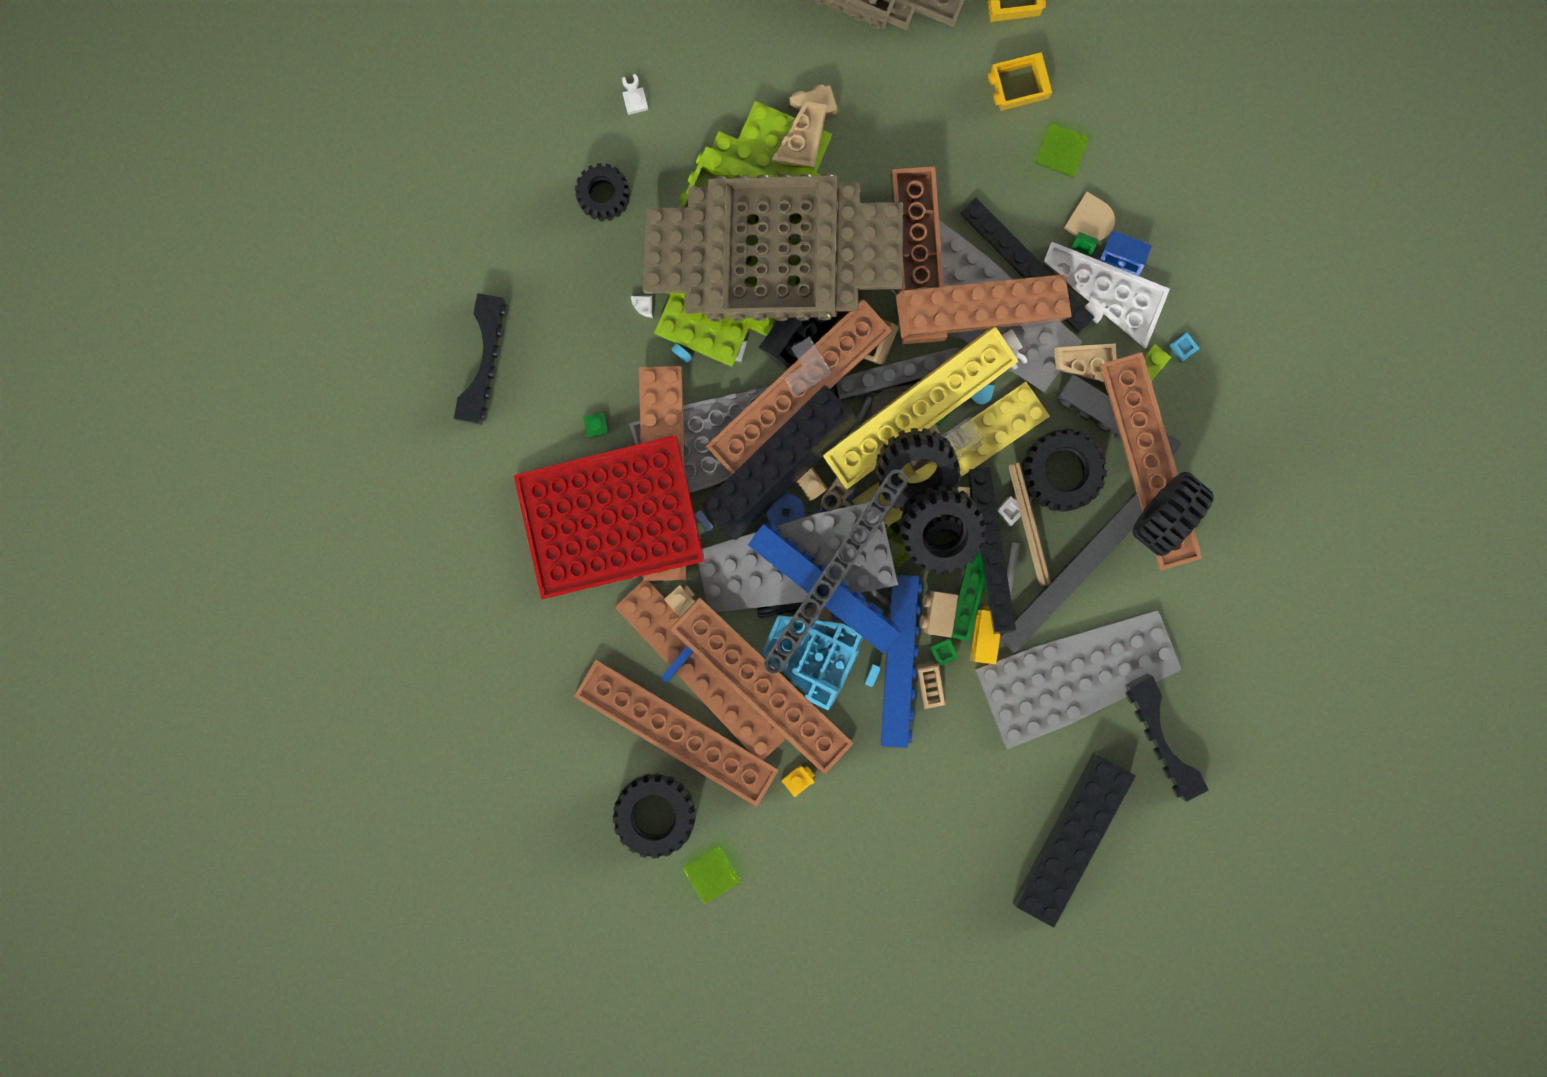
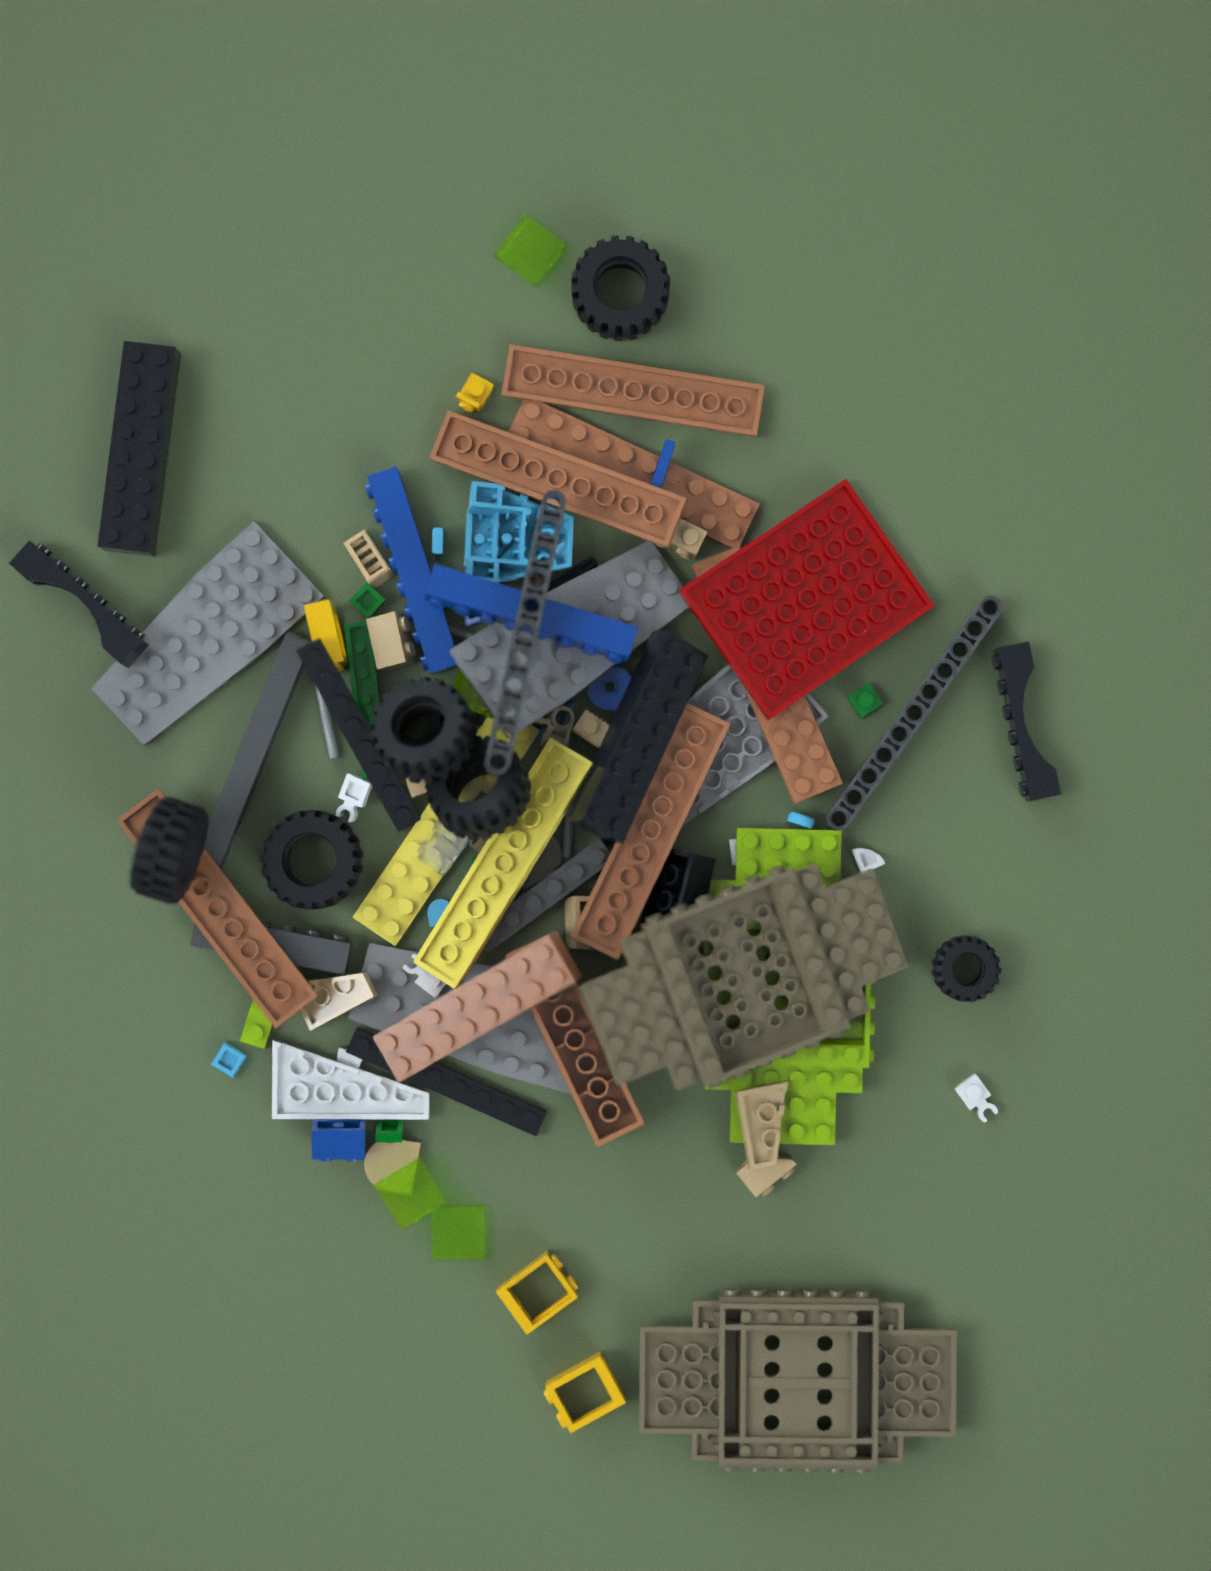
camera: 165 degrees right, 0 degrees up
(552, 400) = (924, 706): none -> dark grey beam
(703, 521) = (698, 639): light blue tile -> none
(812, 370) = (643, 856): clear tile -> none
(1029, 524) = (327, 784): tan axle -> none
(1087, 192) = (410, 1193): none -> clear neon green tile

